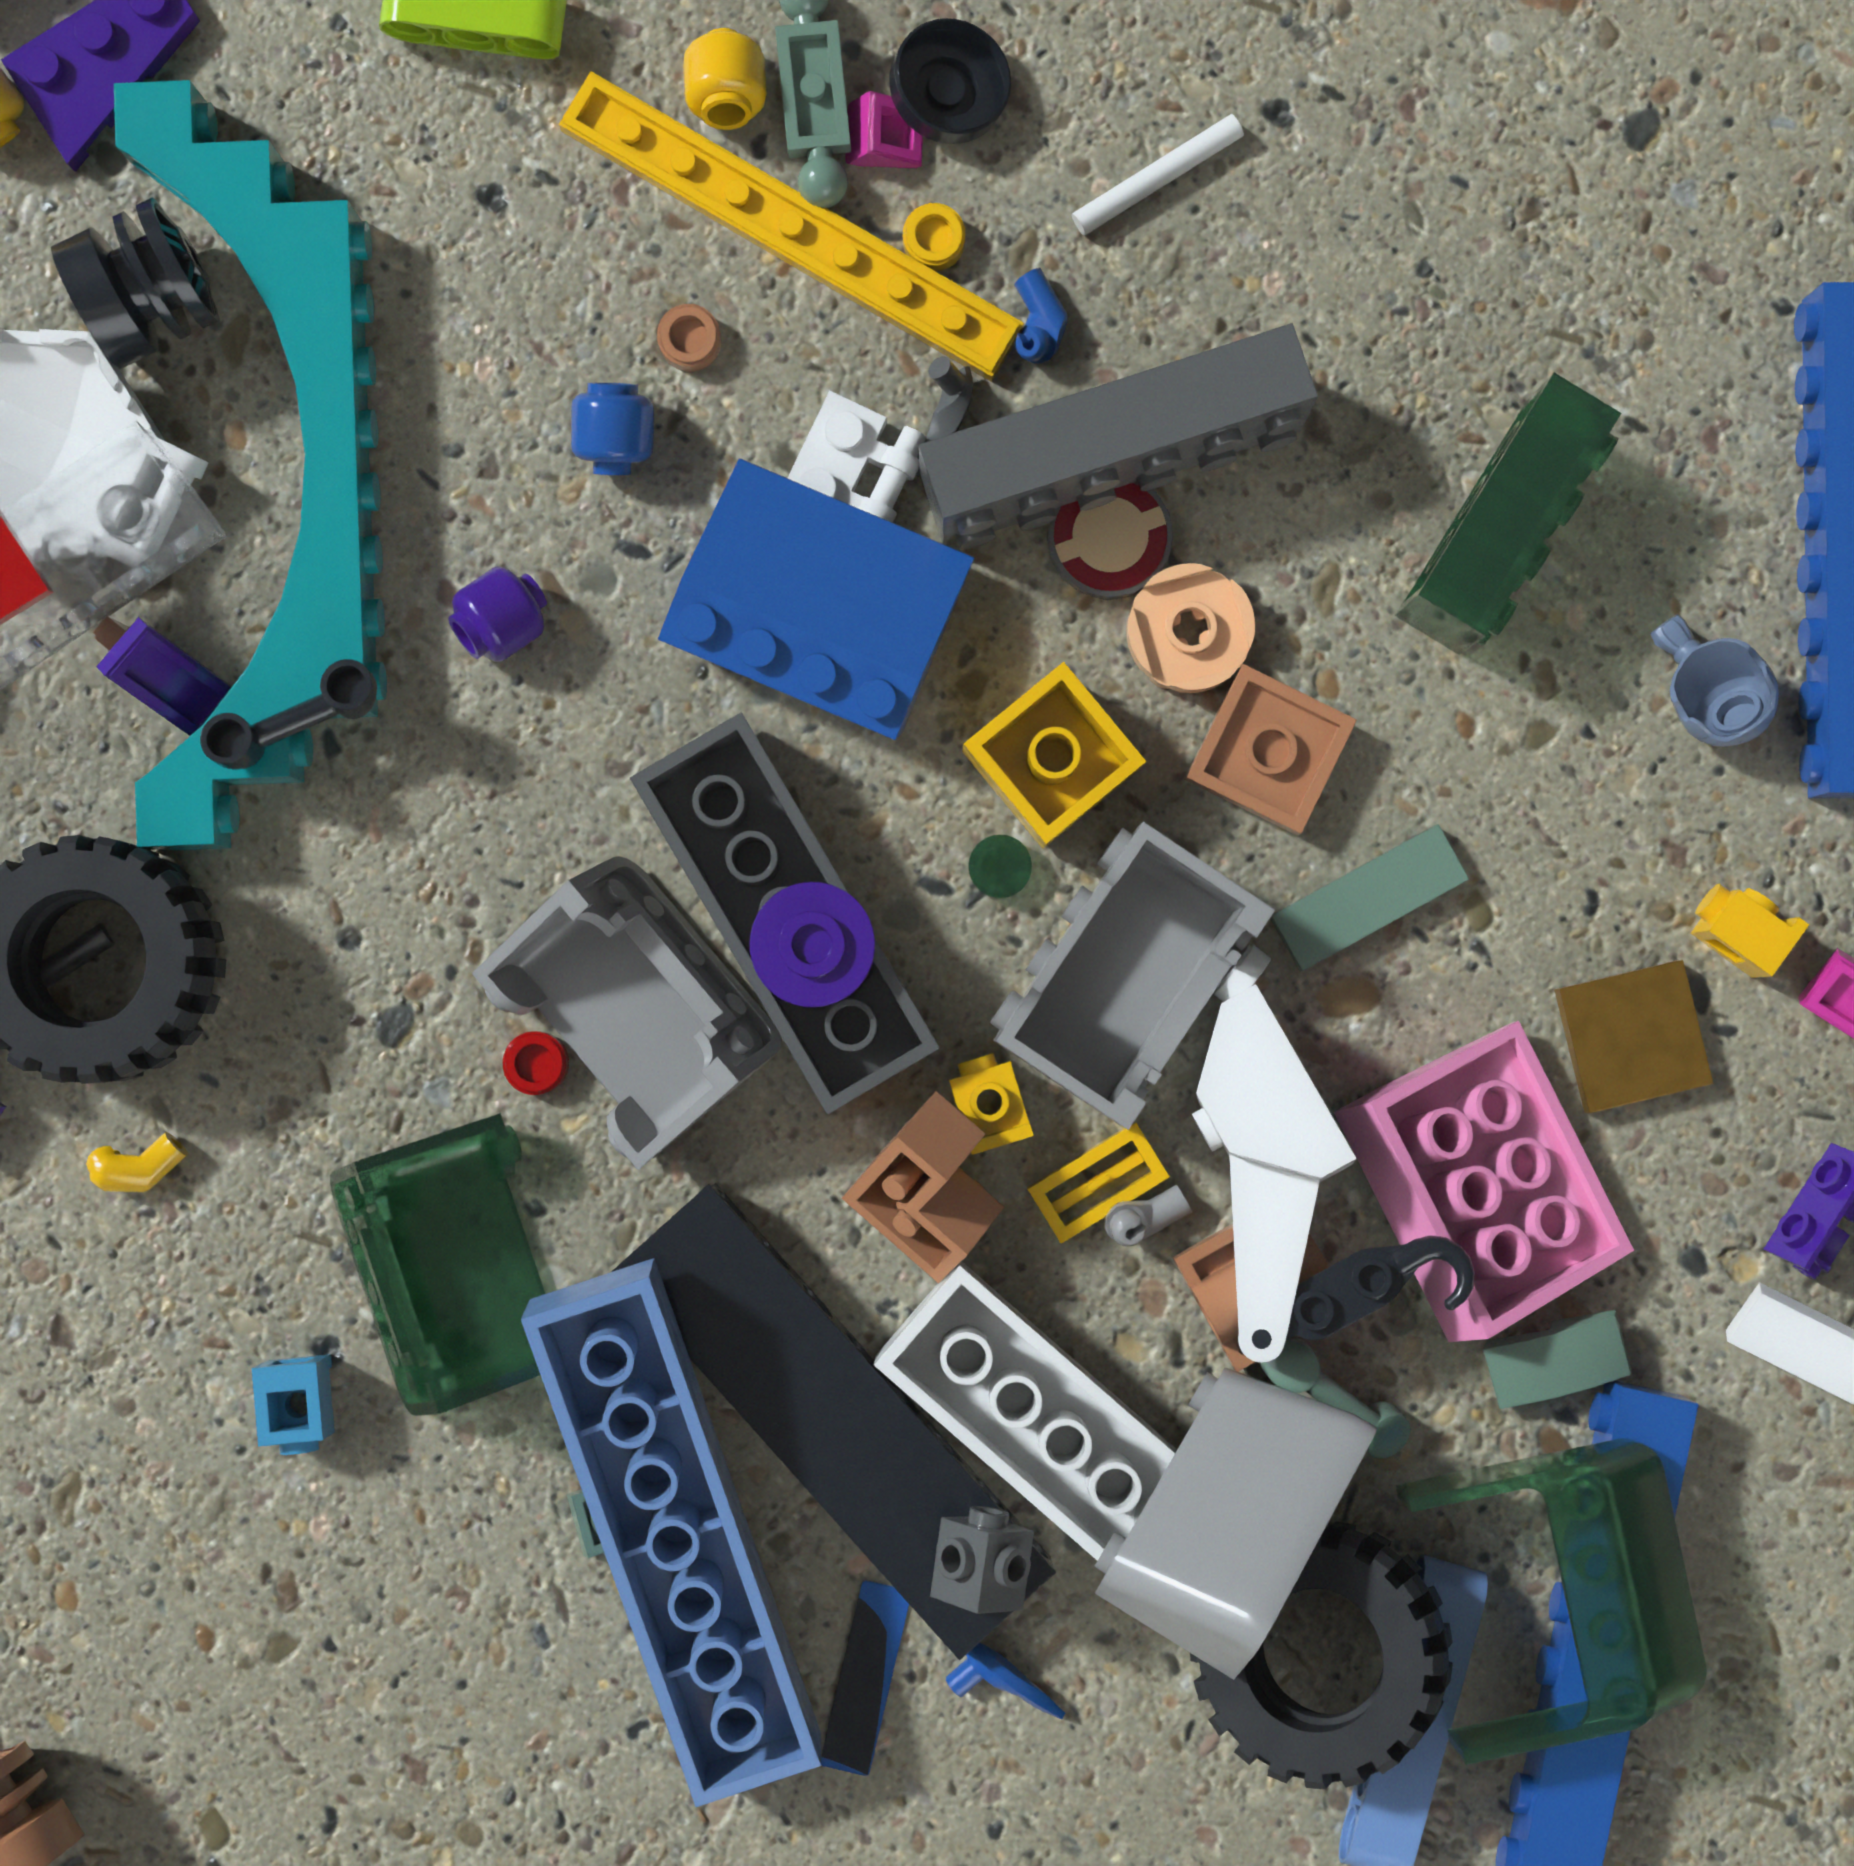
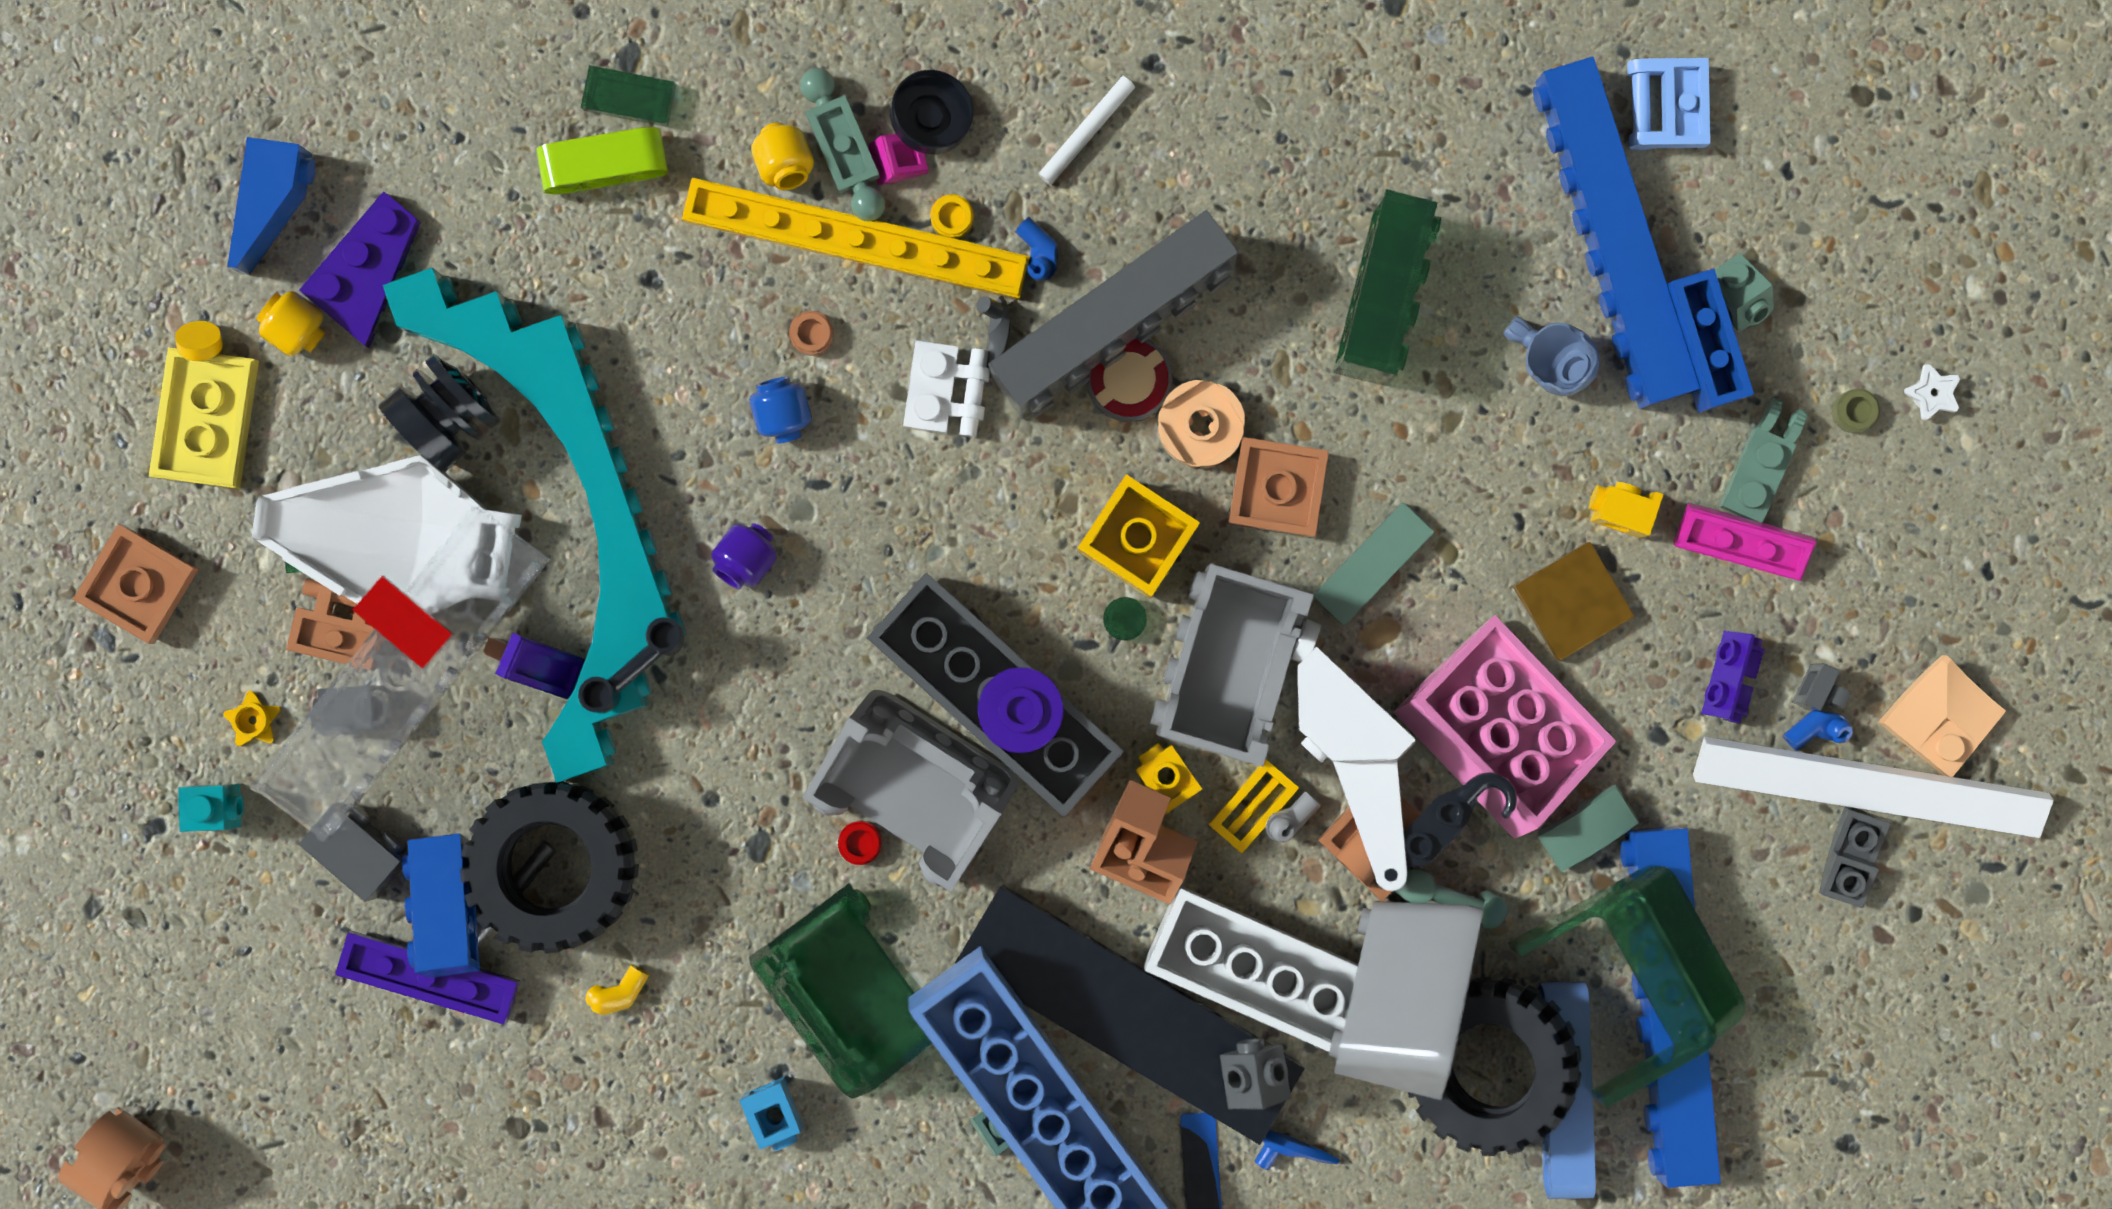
camera: 25 degrees left, 0 degrees up
(816, 599) = (951, 481): blue slope -> none

